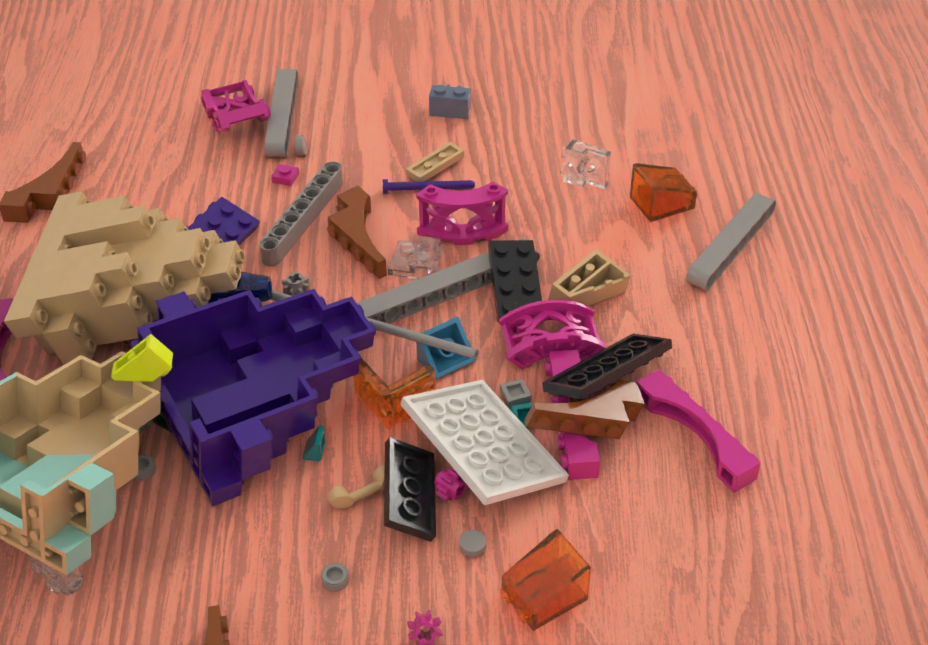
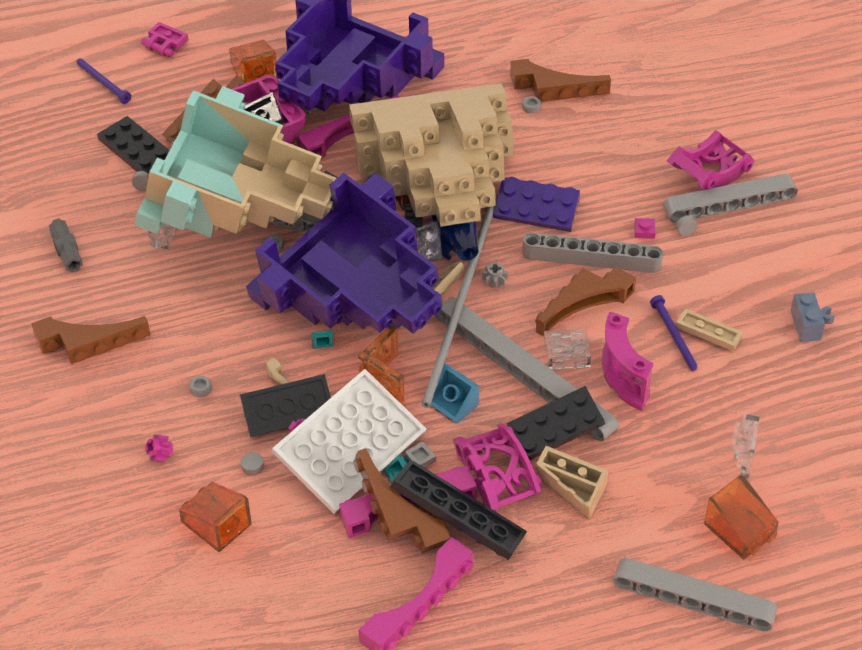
camera: 75 degrees right, 5 degrees up
(143, 362) = (317, 191): neon yellow slope -> none

